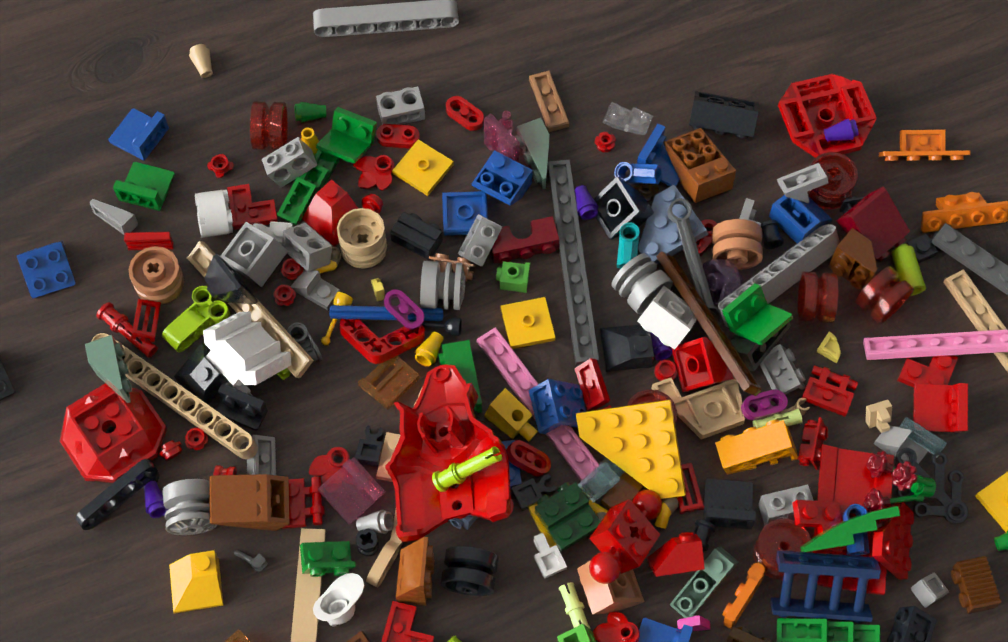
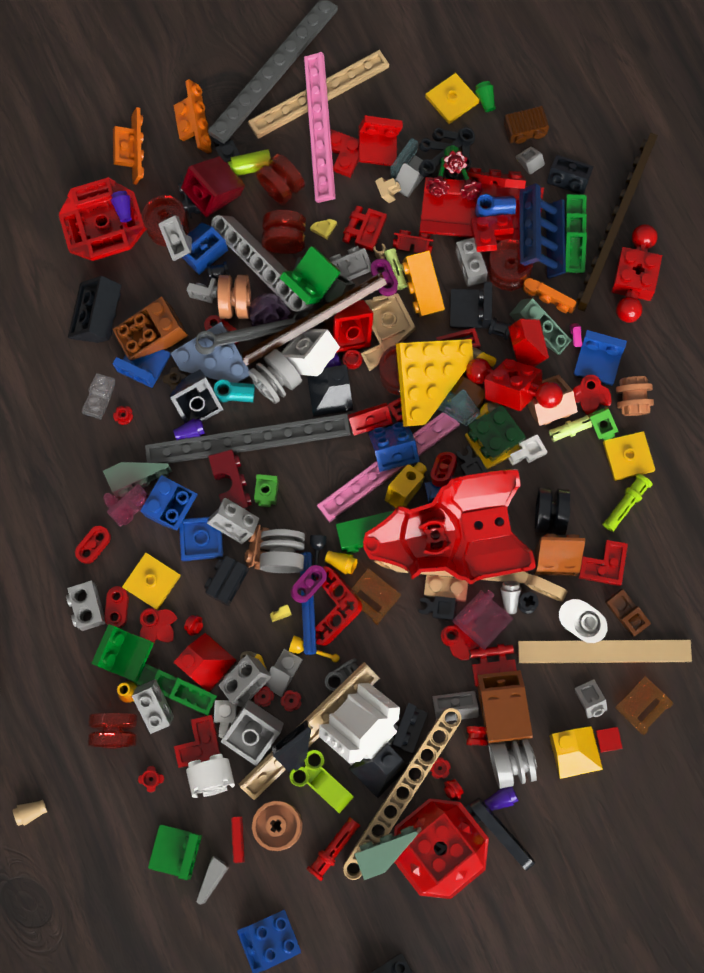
camera: 85 degrees left, 10 degrees up
(139, 133) = (115, 867): blue bracket -> none
(144, 334) = (324, 839): red tile -> none
(205, 621) = (608, 739): none -> red tile
(251, 603) = (591, 699): none -> light grey bracket
(257, 563) = (552, 698): dark grey hand -> none
(307, 111) = (91, 697): green cone -> none
(326, 557) = (547, 636): green bracket -> none
(362, 238) = (222, 629): tan wheel -> none
(458, 472) = (475, 518): lime pin -> none
(527, 323) = (310, 477): yellow plate -> none
(549, 101) = (77, 468): medium nougat tile -> none
(639, 173) = (161, 379): blue piece -> none
(843, 532) = (505, 211): green slope -> none
(854, 260) = (246, 201): reddish brown slope -> none

